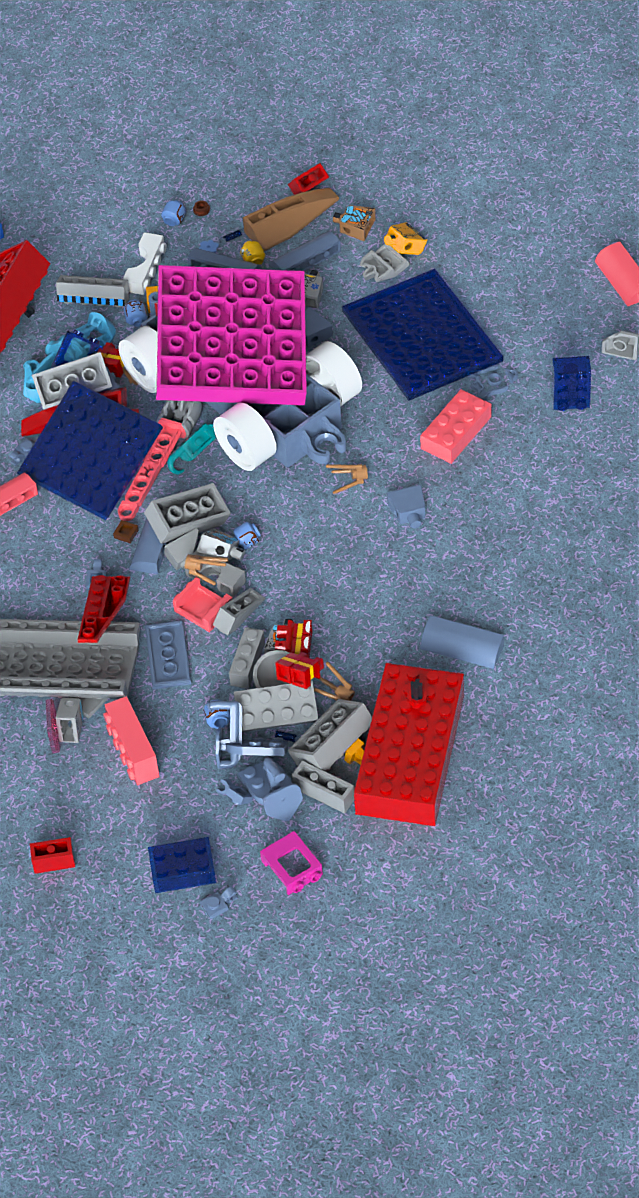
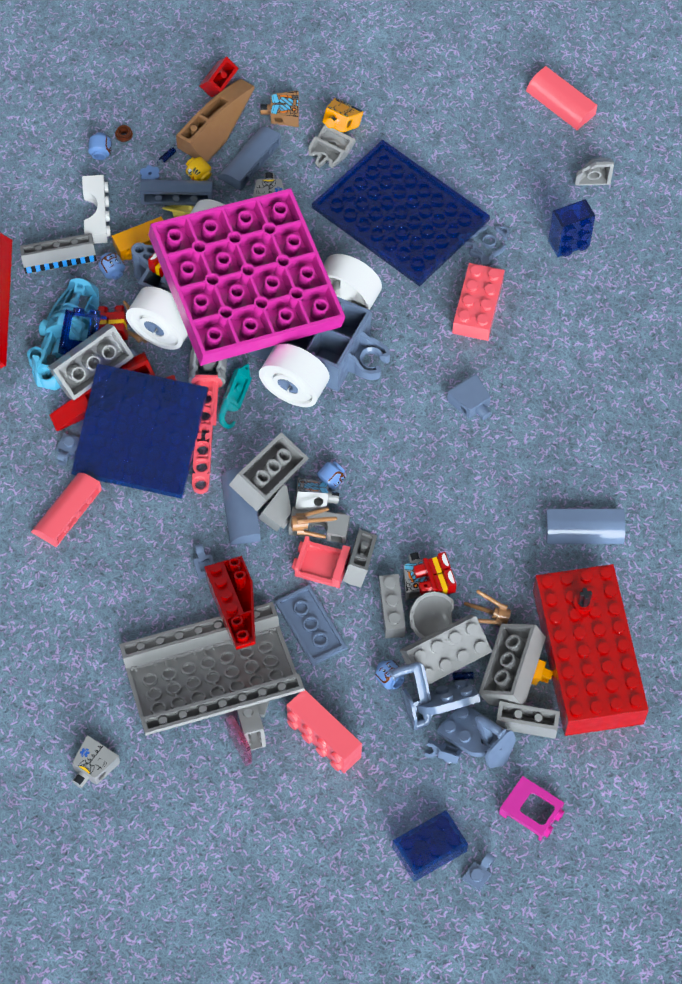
camera: 25 degrees left, 10 degrees up
(52, 855) = (301, 878): red brick -> none
(125, 531) = (210, 506): reddish brown plate -> none
(298, 669) = (460, 609): red hips -> none
(357, 472) = (407, 377): medium nougat plant -> none

